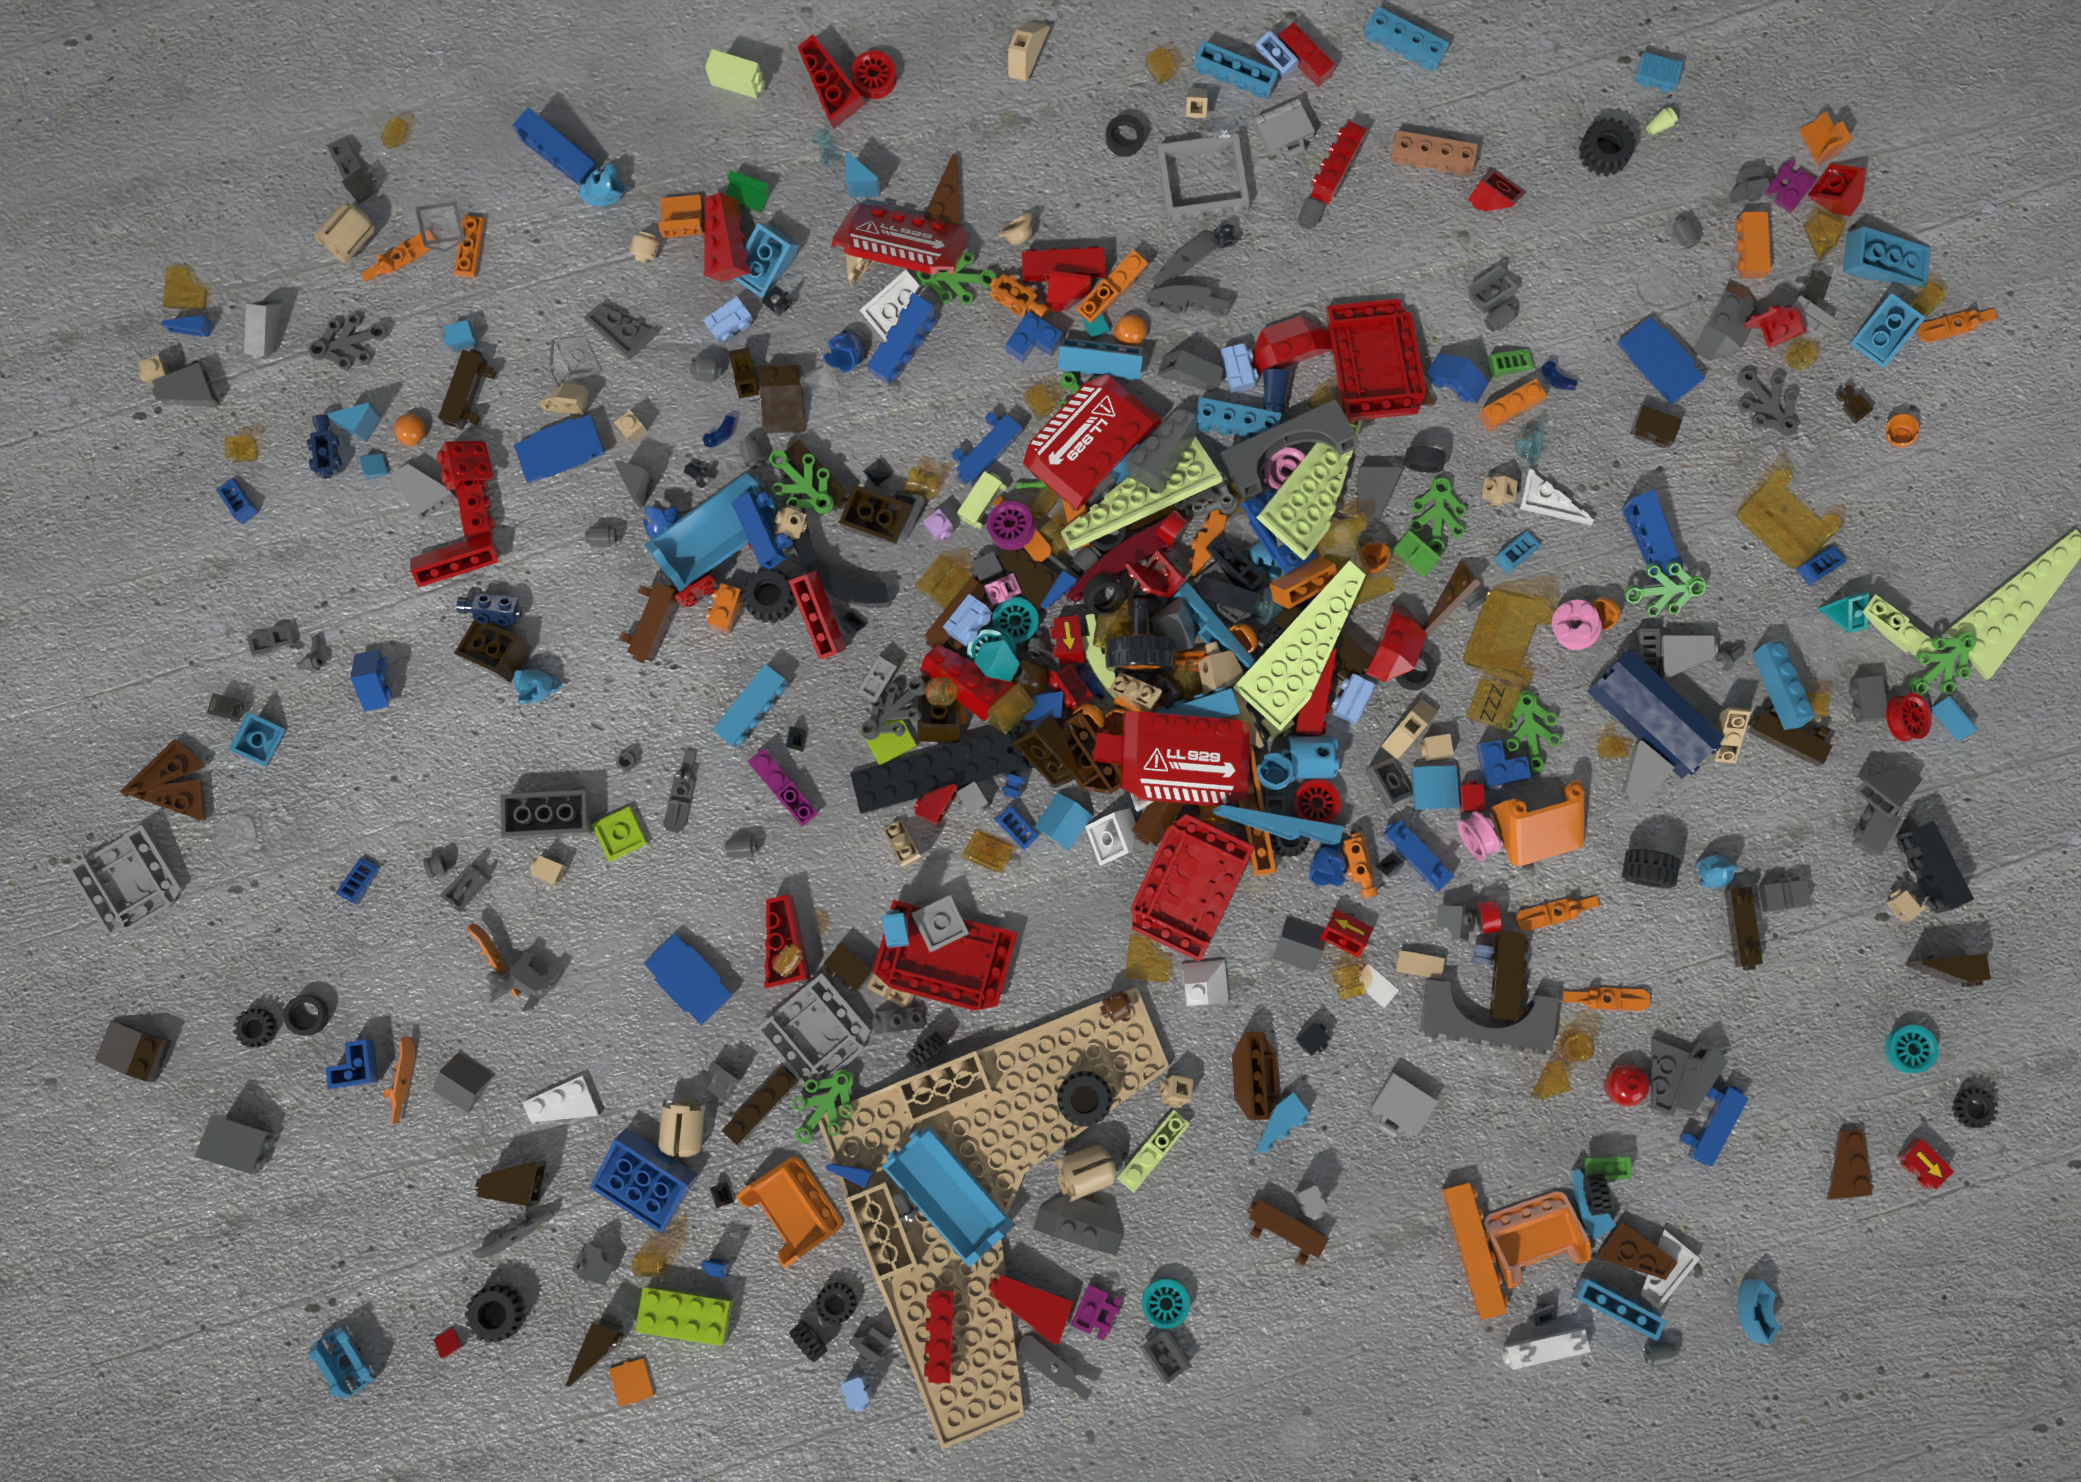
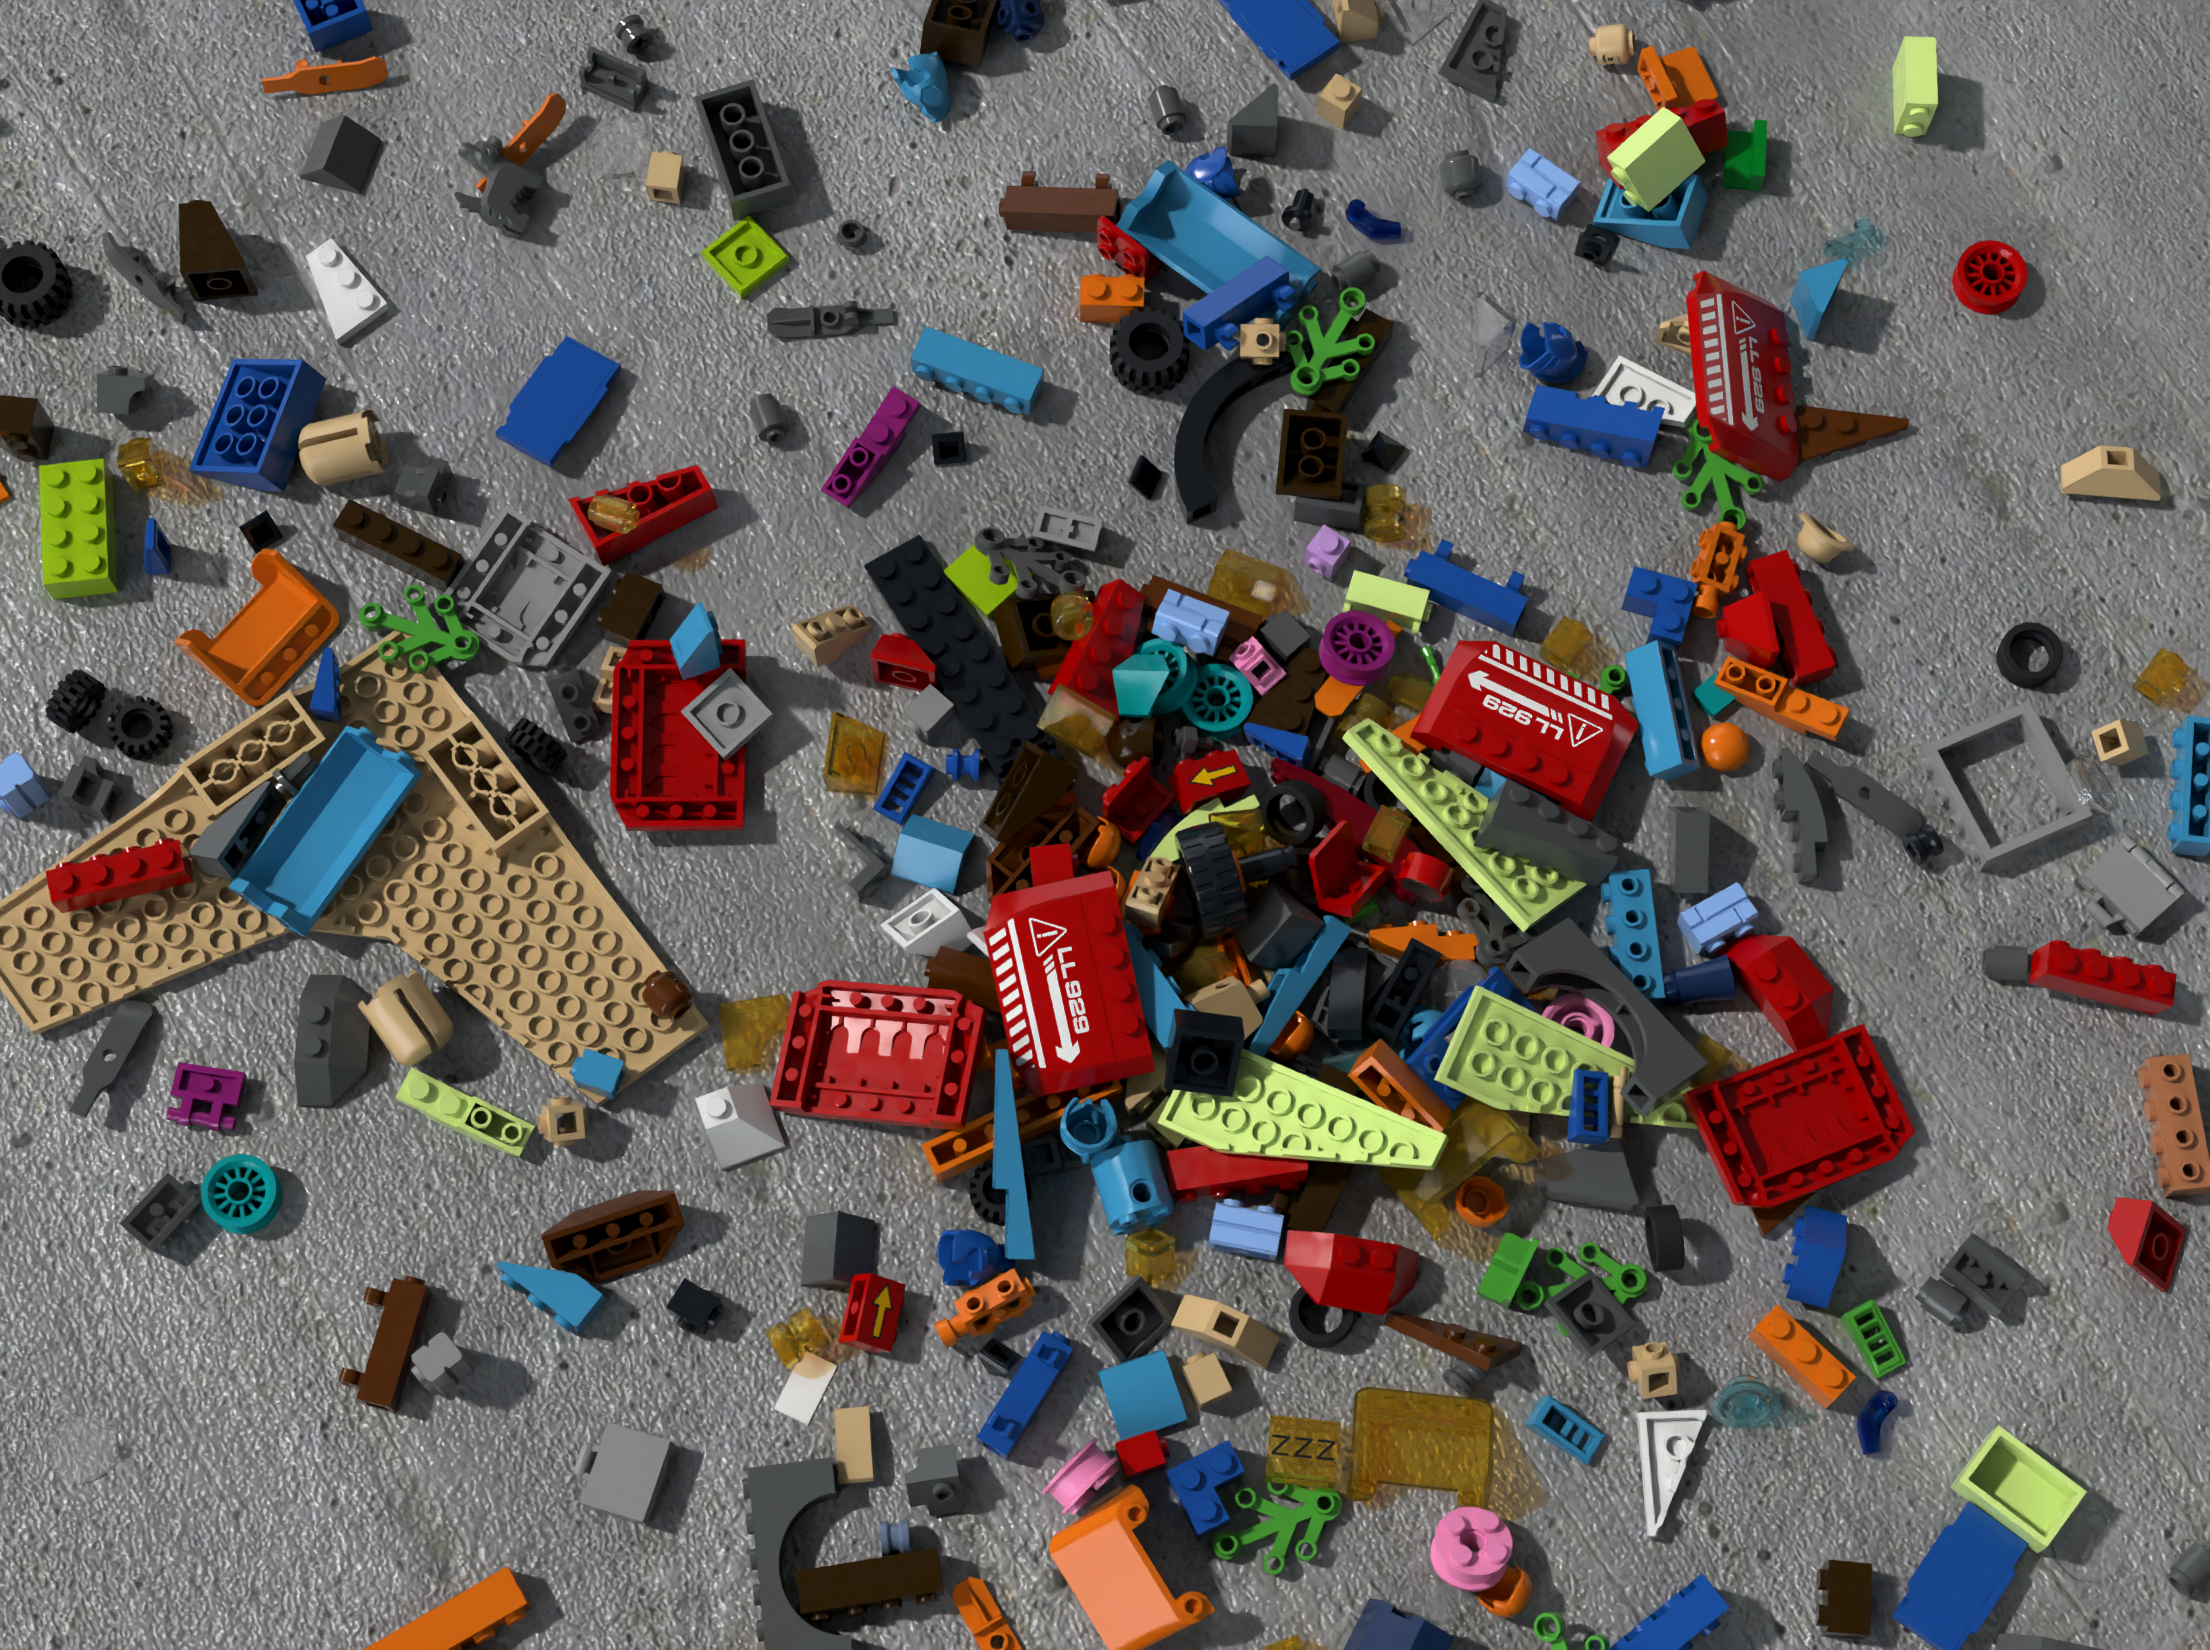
camera: 70 degrees right, 10 degrees down
(743, 244) = (1655, 159): none -> yellowish green brick
(744, 372) = (1469, 229): dark brown brick -> none
(781, 399) = (1446, 288): dark brown slope -> none
(817, 615) = (1137, 419): red brick -> none
(832, 86) = (1949, 222): red wedge -> none
(935, 1255) = (236, 834): none -> dark grey slope
(1035, 1307) = (193, 998): red slope -> none
(1046, 704) = (1093, 771): blue sticker -> none
(1072, 864) = (869, 879): none -> dark grey bracket
(1104, 1098) = (500, 963): black tyre -> none
(1136, 542) = (1387, 833): none -> clear yellow brick
(1154, 1061) = (599, 1073): none -> dark azure brick
(1251, 688) = (1203, 1052): none -> black slope
(1324, 786) = (1070, 1188): red wheel -> none
(1340, 459) = (1618, 1104): none -> tan wheel
(1348, 472) = (1577, 1108): none -> blue slope
(1353, 759) = (1150, 1255): none -> clear yellow panel
(1457, 516) = (1589, 1314): none -> dark grey slope
(1488, 916) = (956, 1527): red piece -> none
(1620, 311) = (2018, 1489): none -> yellowish green piece

